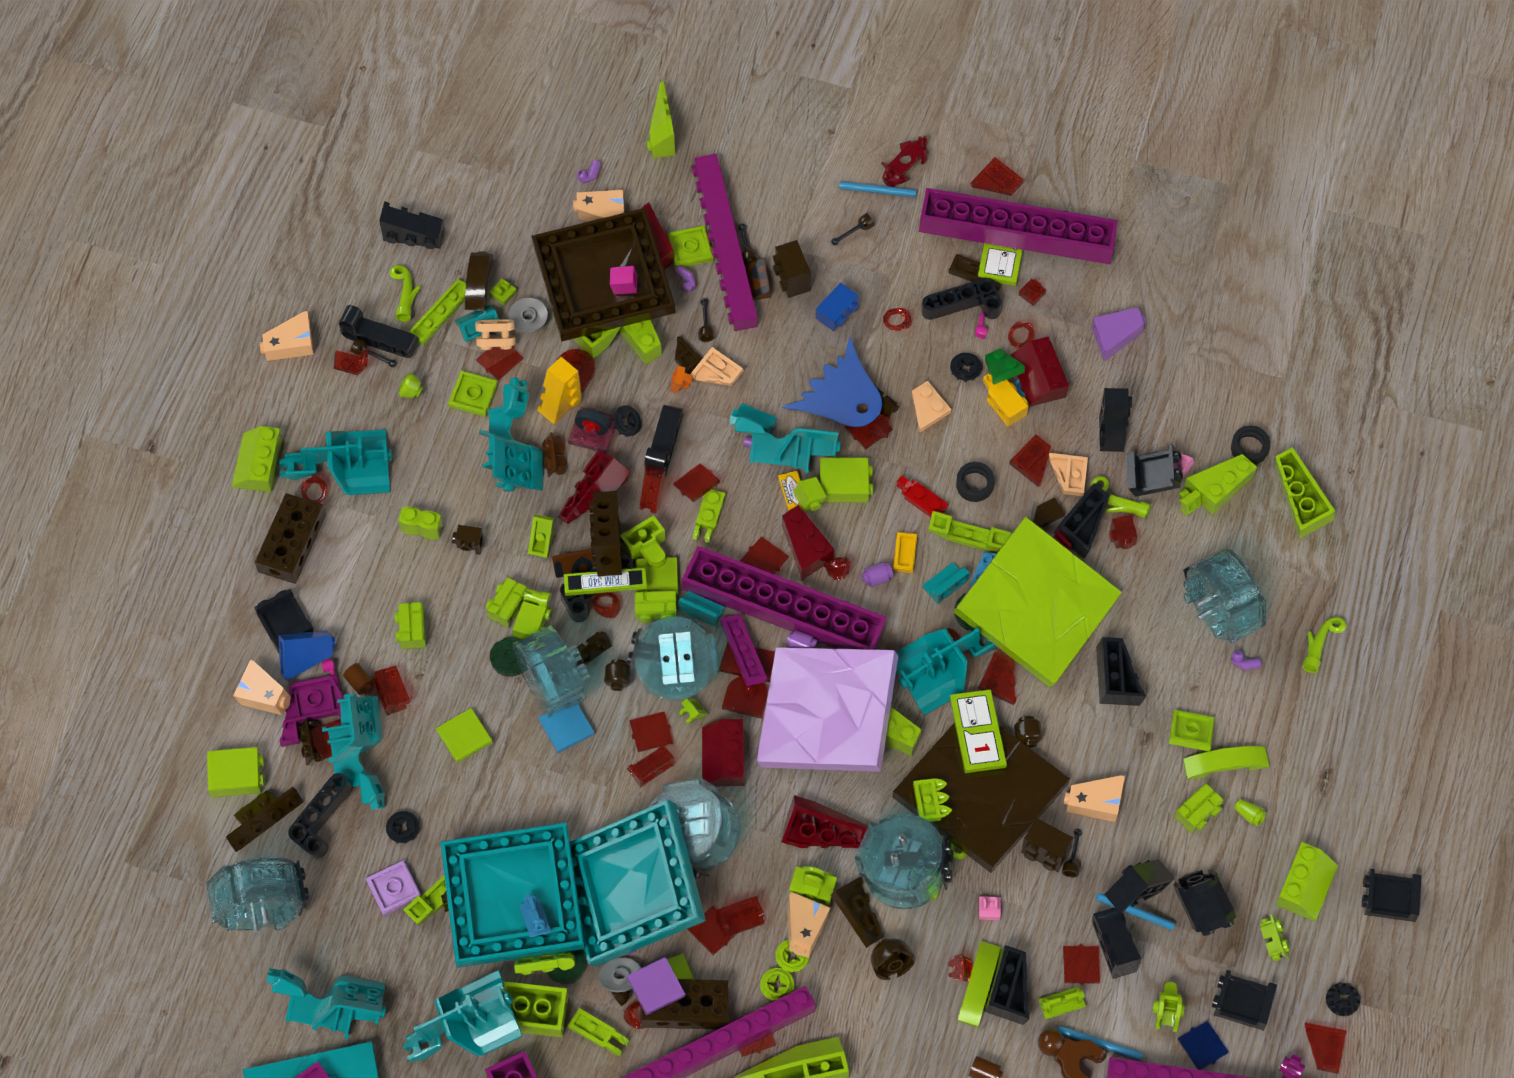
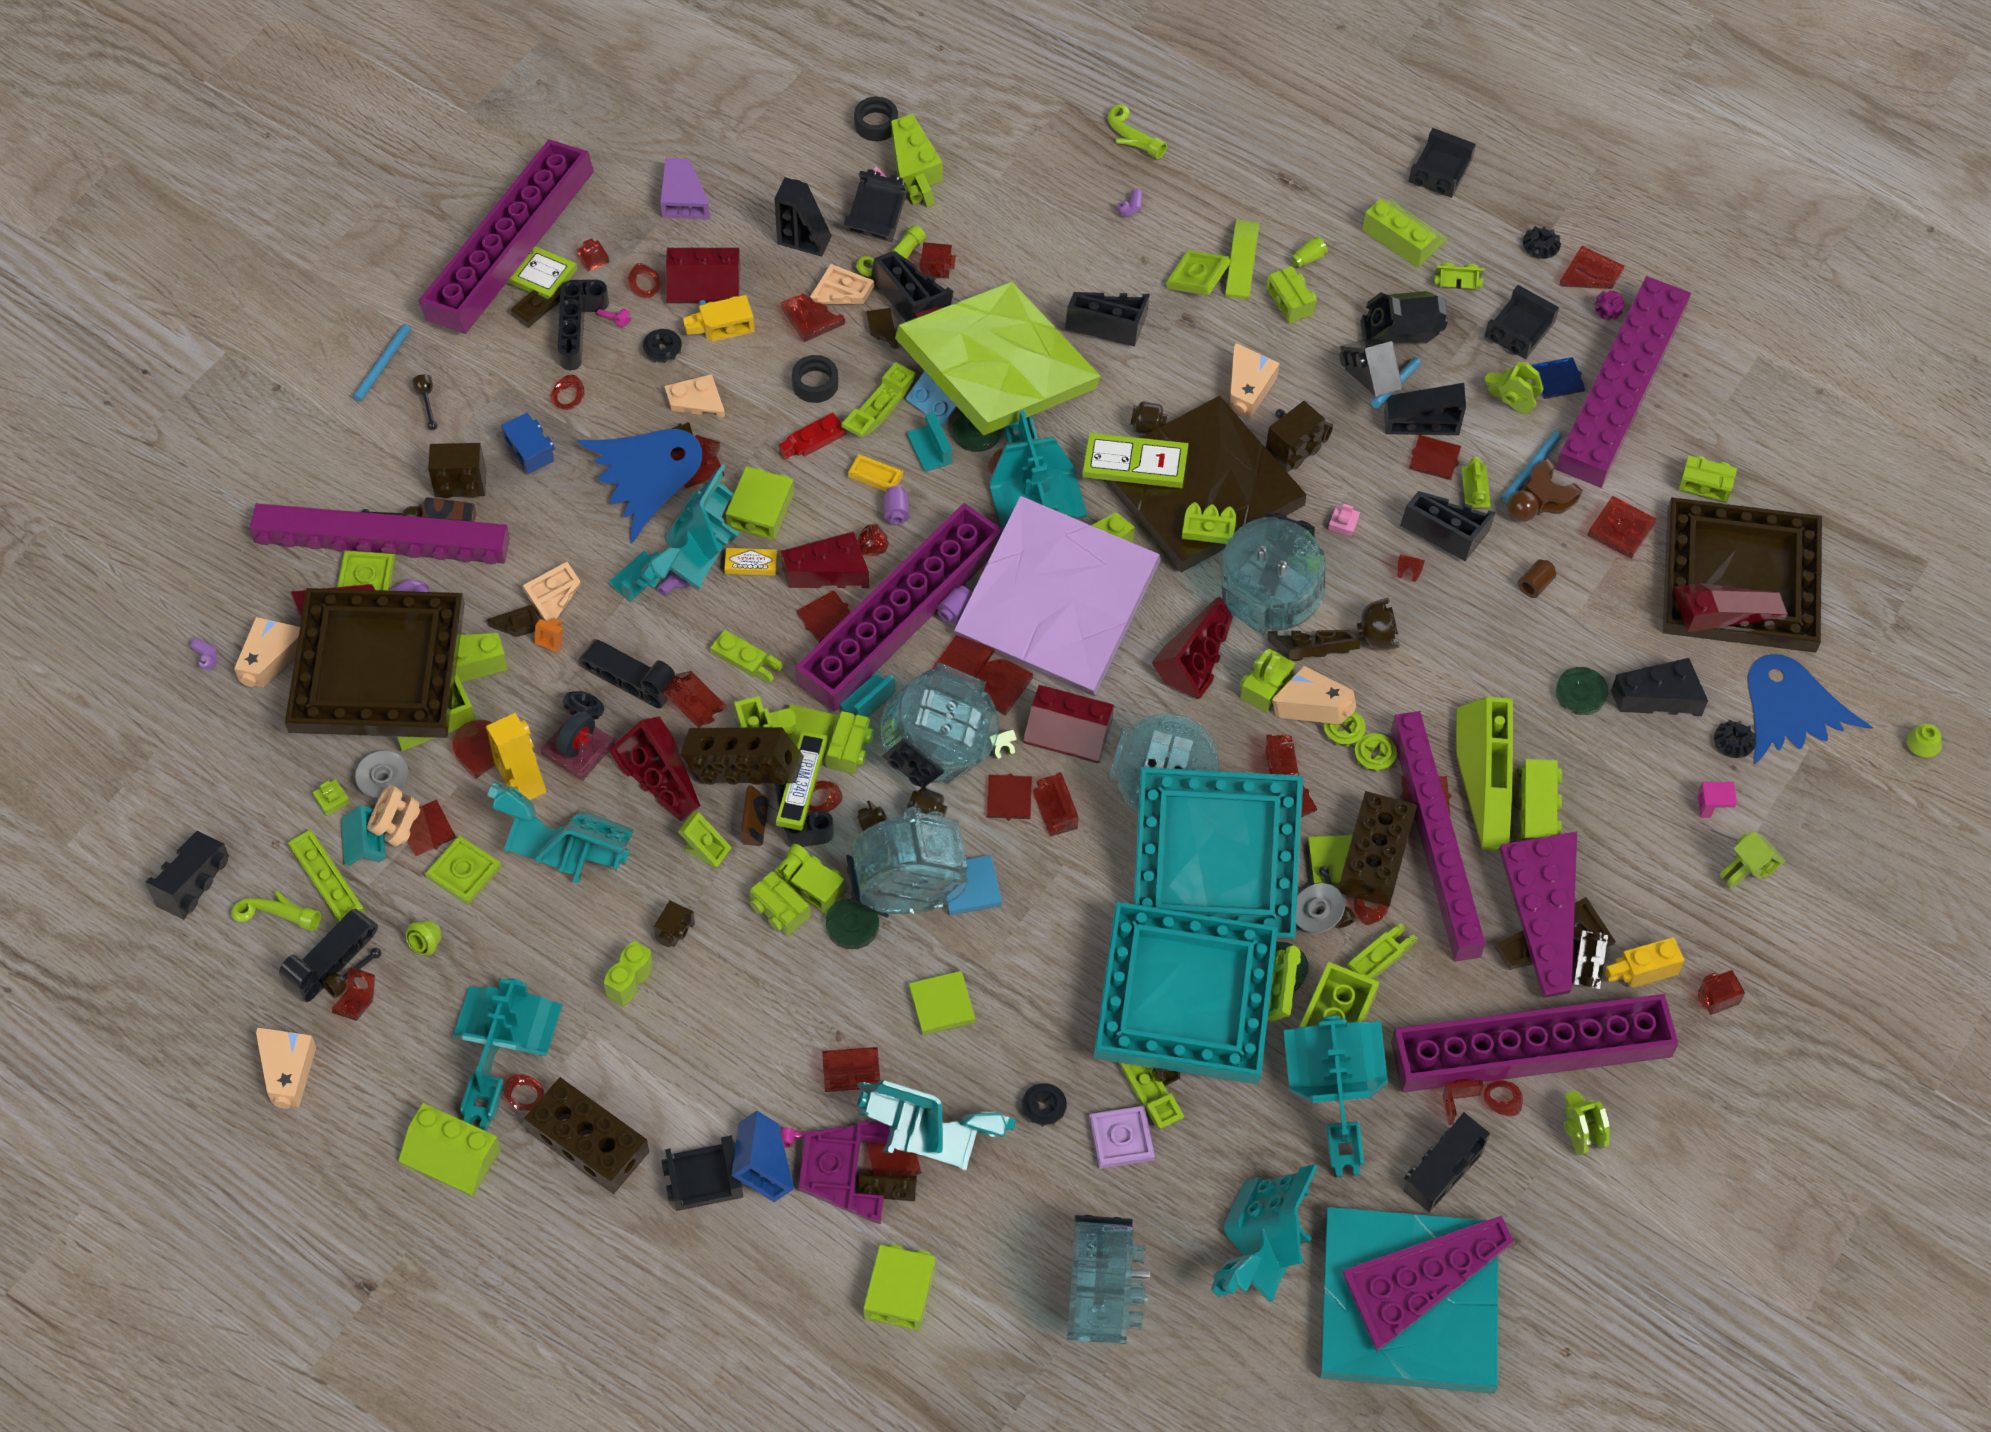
camera: 75 degrees left, 5 degrees down
(261, 691) = (799, 1220): light nougat slope -> none
(261, 815) = (969, 1271): dark brown bracket -> none
(323, 814) = (1000, 1187): black beam -> none
(359, 679) = (822, 1102): reddish brown brick -> none
(411, 625) = (769, 1022): lime brick -> none
(477, 280) = (309, 811): dark brown arch -> none
(534, 916) = (1229, 969): dark azure hinge -> none
(554, 446) = (599, 803): reddish brown hinge -> none
(623, 280) = (401, 635): dark pink panel -> none
(655, 986) = (1360, 858): medium lavender tile -> none
(661, 128) = (188, 552): lime wedge -> none
(696, 482) = (699, 654): clear red piece -> none
(705, 333) = (496, 589): dark brown hinge -> none
(743, 650) = (967, 660): magenta plate -> none
(810, 494) = (771, 536): lime brick -> none
(895, 170) = (370, 335): dark red piece -> none
(979, 984) = (1434, 552): lime slope -> none
(997, 178) = (429, 241): clear red wing -> none
(1000, 678) = (1069, 427): clear red wing -> none
(1002, 366) = (681, 305): green wing -> none
(1225, 595) = (1060, 180): clear light blue piece -> none
(1303, 495) = (956, 89): lime wedge -> none

